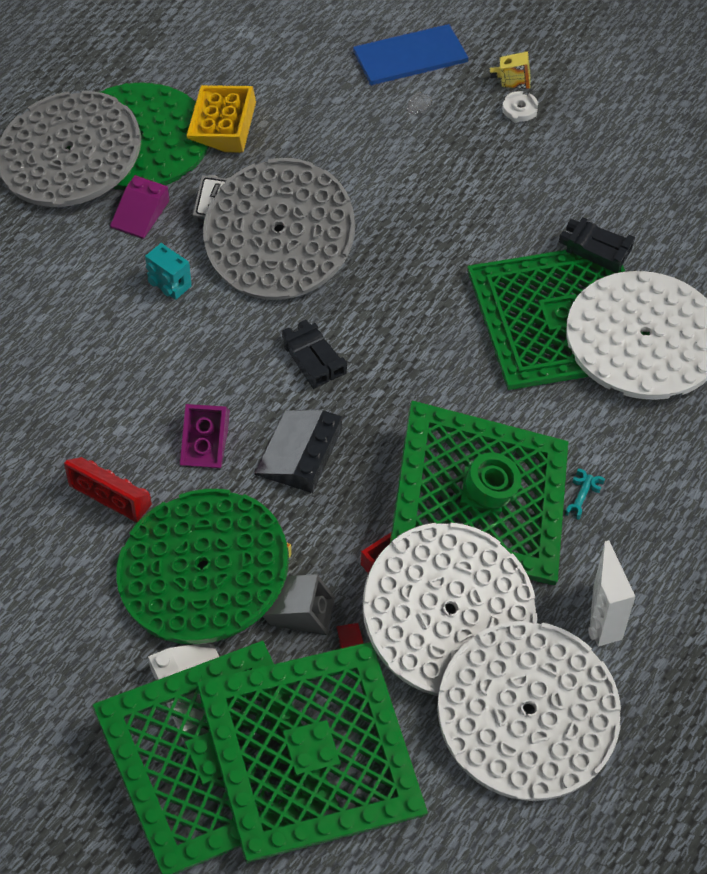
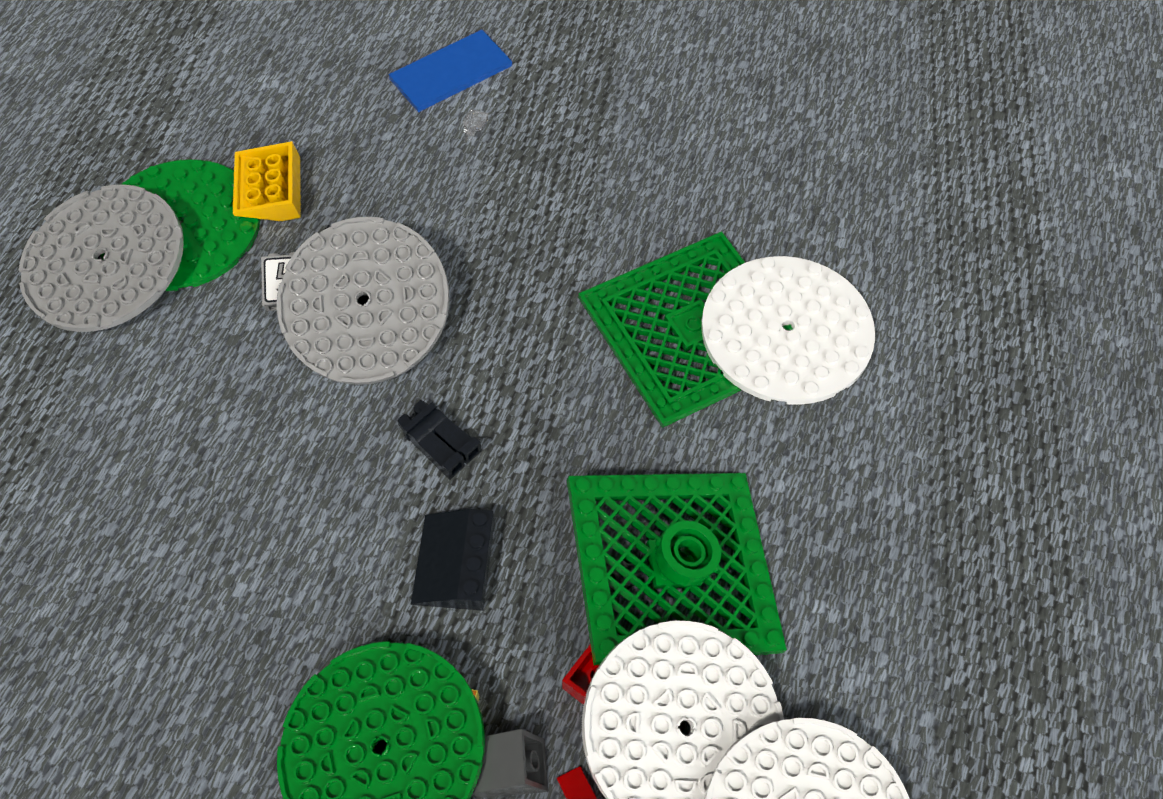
camera: 15 degrees left, 5 degrees up
(107, 488) = (242, 672): red slope -> none
(140, 206) = (200, 307): magenta slope -> none
(168, 271) = (250, 379): teal piece -> none
(204, 435) = (341, 574): magenta slope -> none
(513, 71) = (563, 66): light yellow torso -> none
(516, 113) = (580, 111): white plate -> none
(587, 482) = (780, 516): teal bar -> none
(597, 244) = (707, 238): black hips -> none
(610, 600) = (857, 664): white slope -> none

